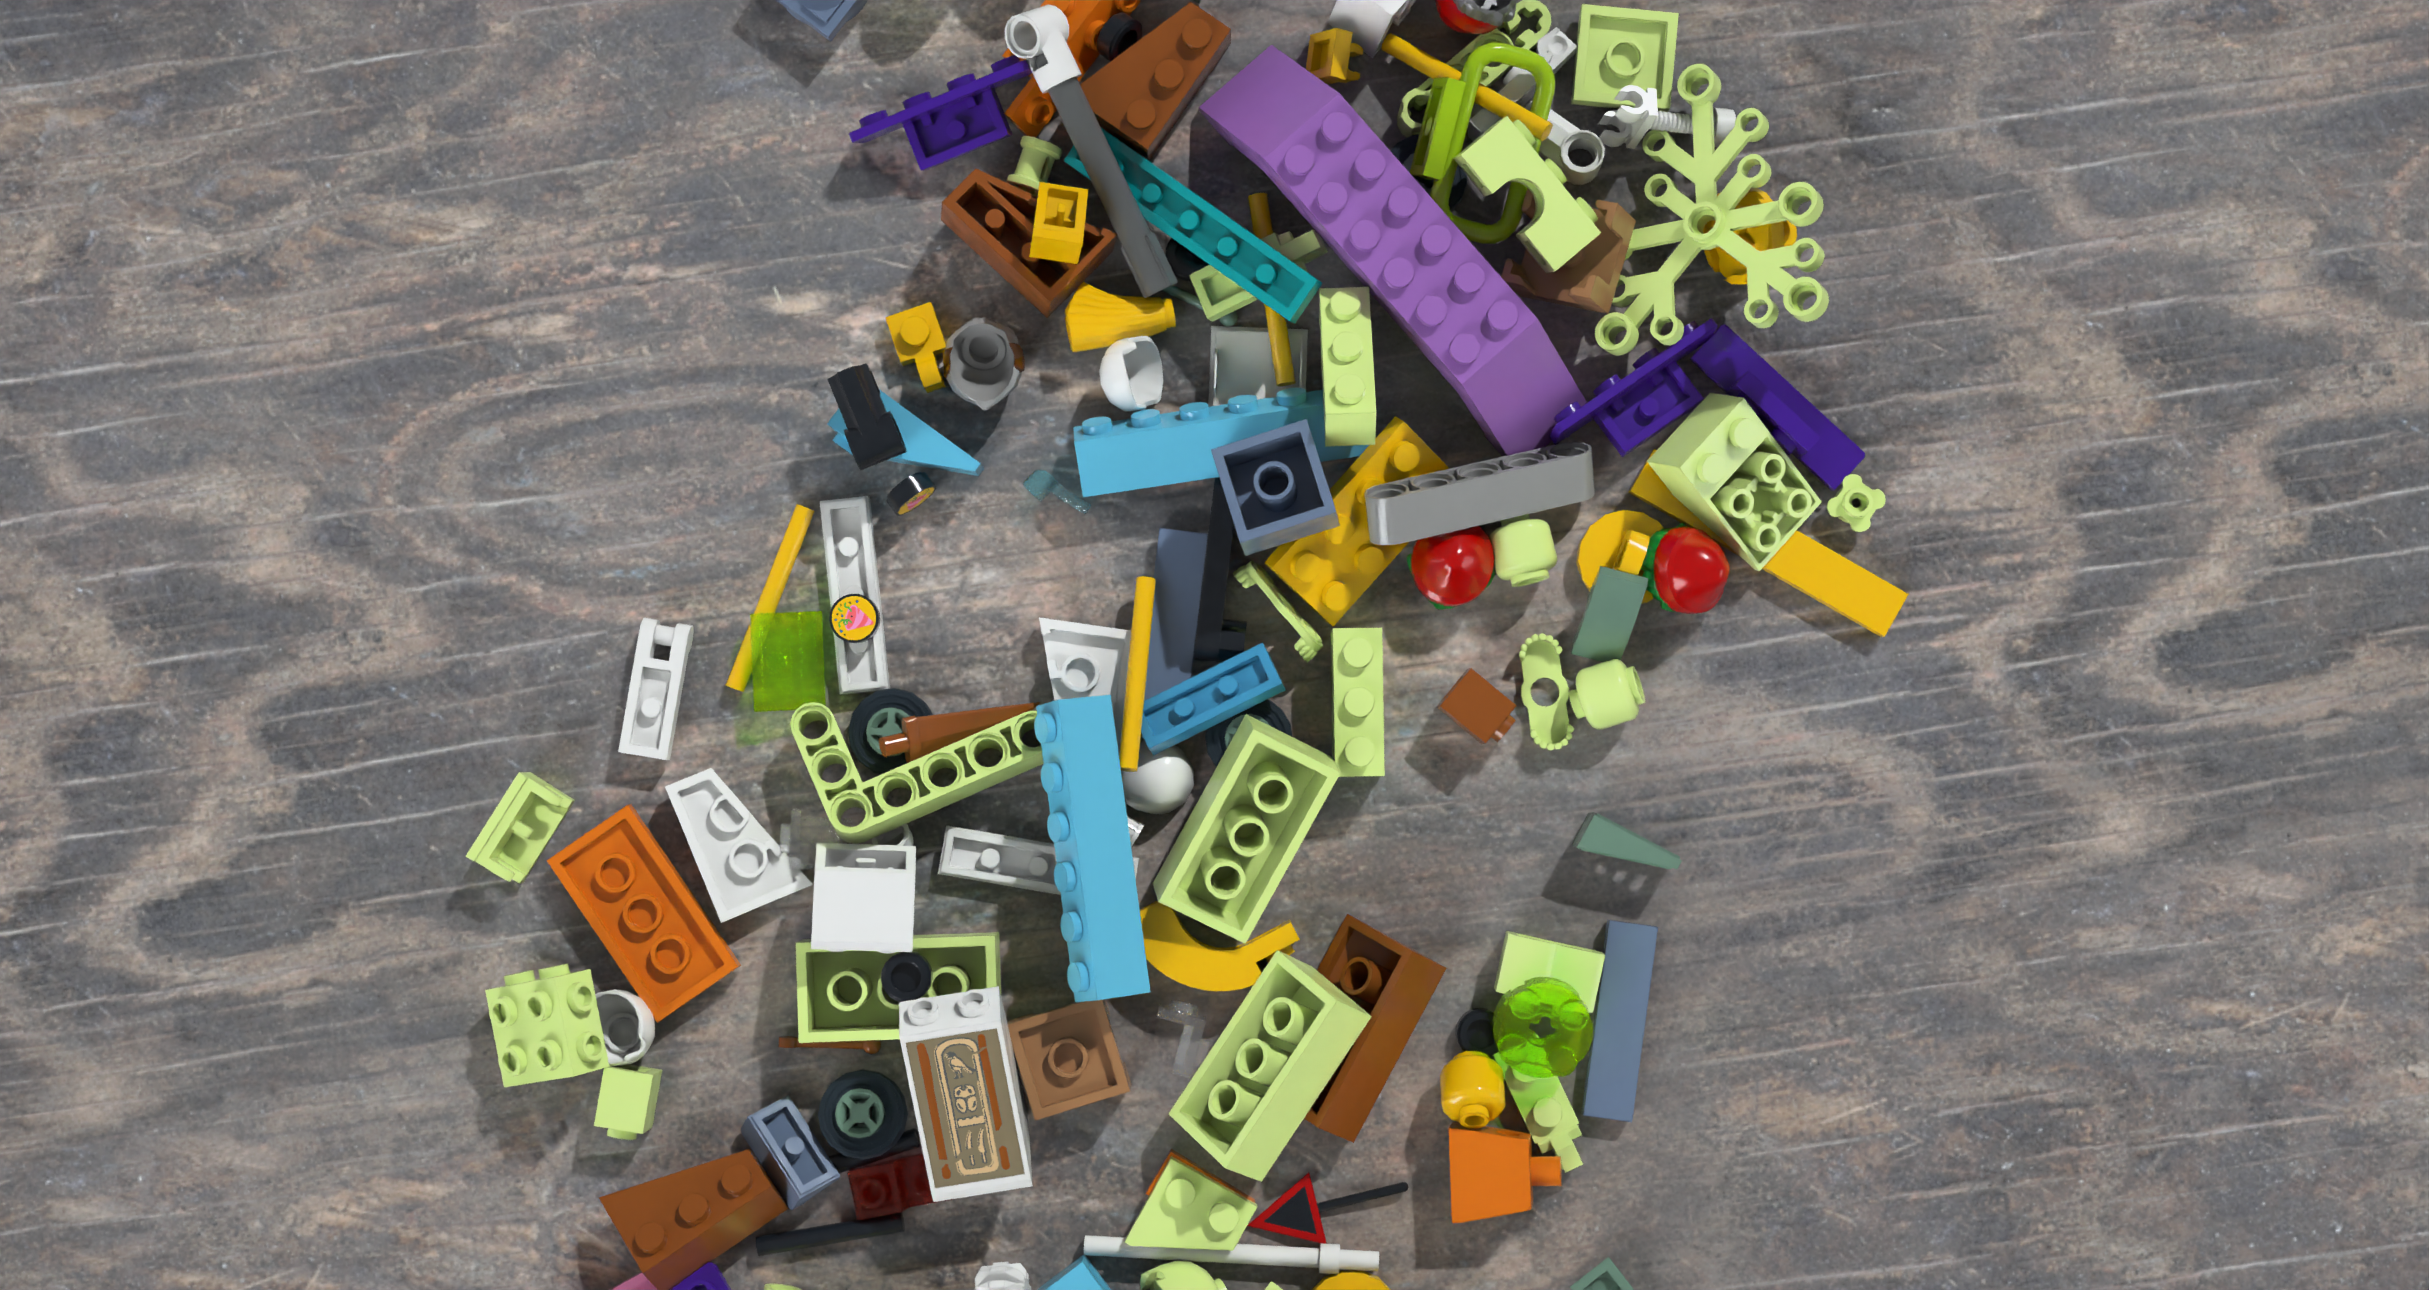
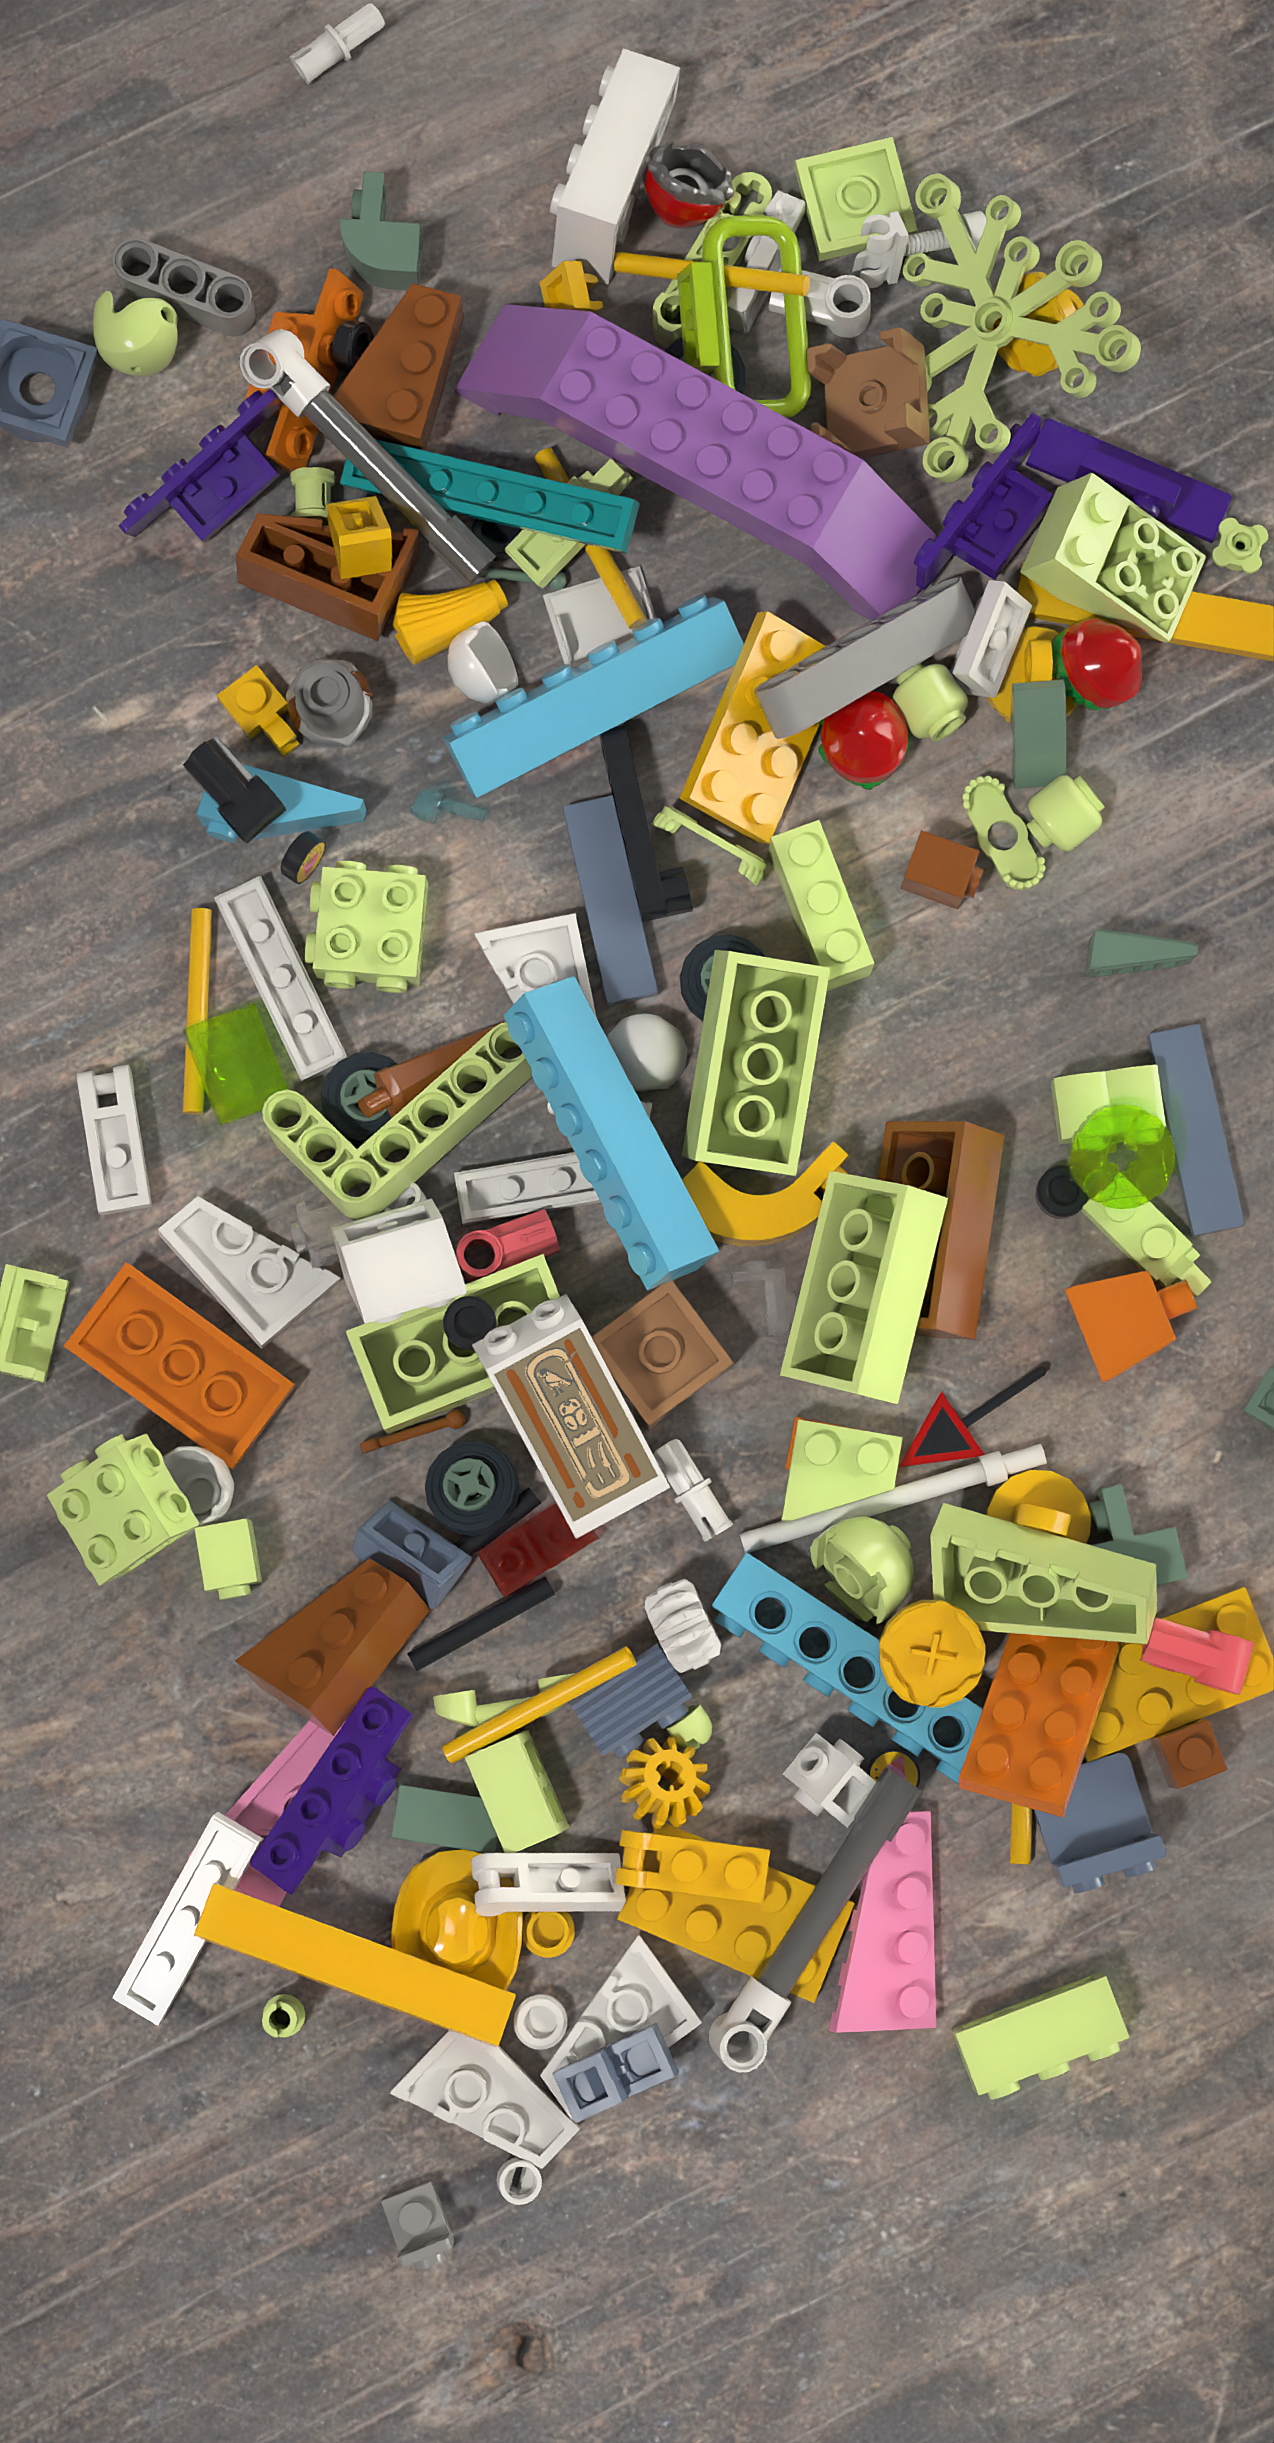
camera: 20 degrees left, 5 degrees down
(854, 618) = (290, 997): tile -> none
(947, 577) = (368, 926): none -> yellowish green brick
(974, 910) = (510, 1244): none -> coral piece
(1056, 1184) = (692, 1489): none -> white axle
(1136, 673) = (592, 950): yellow bar -> none
(1209, 698) = (671, 951): dark azure plate -> none
(1275, 487) = (665, 713): sand blue brick -> none
(1347, 366) = (693, 574): yellowish green brick -> none
(1472, 1089) = (1074, 1245): yellow head -> none
(1559, 222) = (850, 363): yellowish green arch -> none
(1593, 520) = (990, 640): none -> white panel

